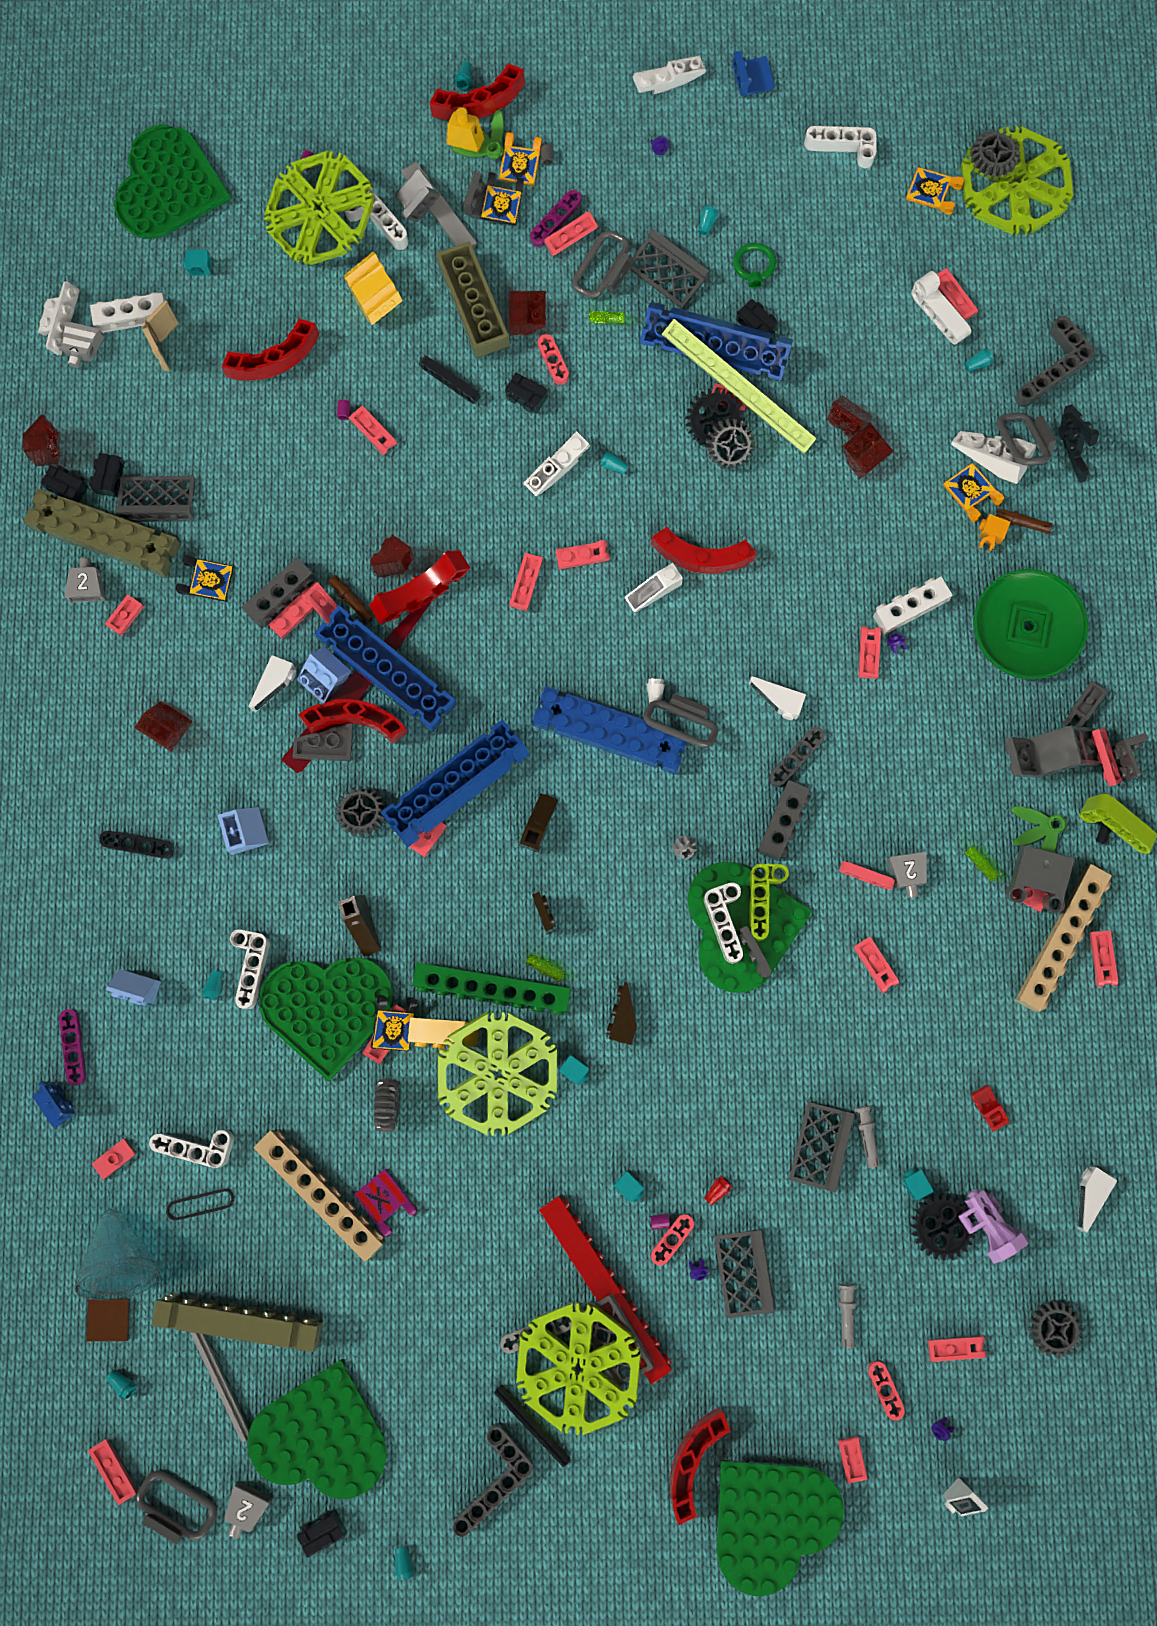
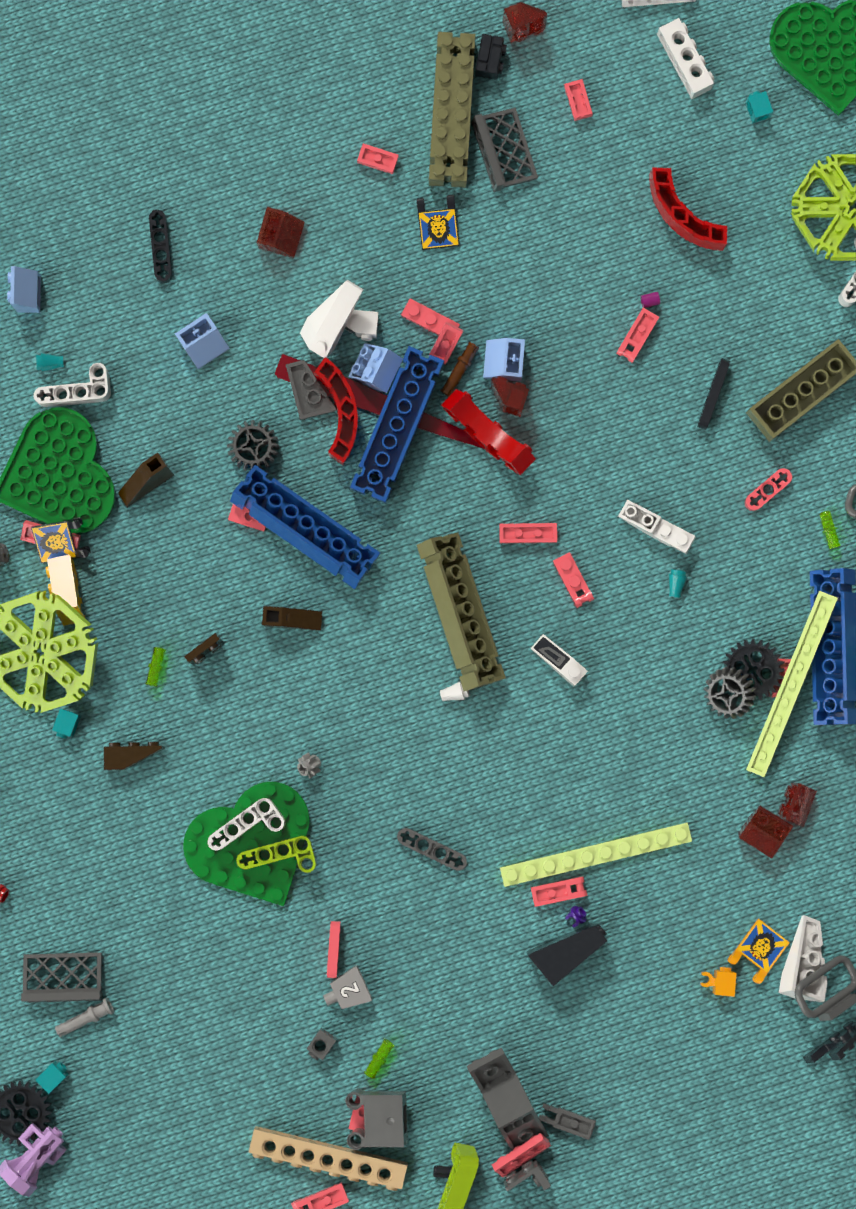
camera: 70 degrees right, 5 degrees up
(80, 342) = (638, 21): light grey torso -> none
(84, 583) = (397, 110): light grey torso -> none
(107, 474) = (512, 94): black brick -> none
(134, 418) = (578, 100): none -> coral plate
(157, 328) = (675, 92): tan piece -> none
(264, 703) = (329, 320): none -> white wedge
(281, 582) = (421, 279): dark grey brick -> none
(354, 553) = (504, 358): none -> light blue slope
(372, 288) = (782, 288): yellow slope -> none
(425, 971) = (119, 554): green brick -> none
(526, 312) = (808, 448): clear red slope -> none
(526, 393) = (723, 473): black brick -> none
(581, 661) = (461, 611): none -> olive brick
(608, 730) = (402, 659): blue brick -> none
(686, 709) = (444, 731): dark grey bar -> none
(702, 559) = (602, 698): red brick -> none
(754, 952) = (223, 862): dark grey hinge -> none
(781, 699) = (483, 820): white slope -> none
(791, 792) = (332, 855): dark grey brick -> none
(844, 610) = (595, 854): none -> yellowish green plate
(875, 964) = (250, 981): coral plate -> none
(929, 658) = (566, 952): none -> black slope
(935, 587) = (638, 945): white brick -> none
(945, 913) = (327, 1038): none -> dark grey brick
(989, 1108) = (144, 1128): red slope -> none
(1023, 520) = (743, 1009): reddish brown pin -> none
(1045, 829) = (432, 1113): bright green plant -> none
(1047, 604) = (639, 1072): green dish -> none

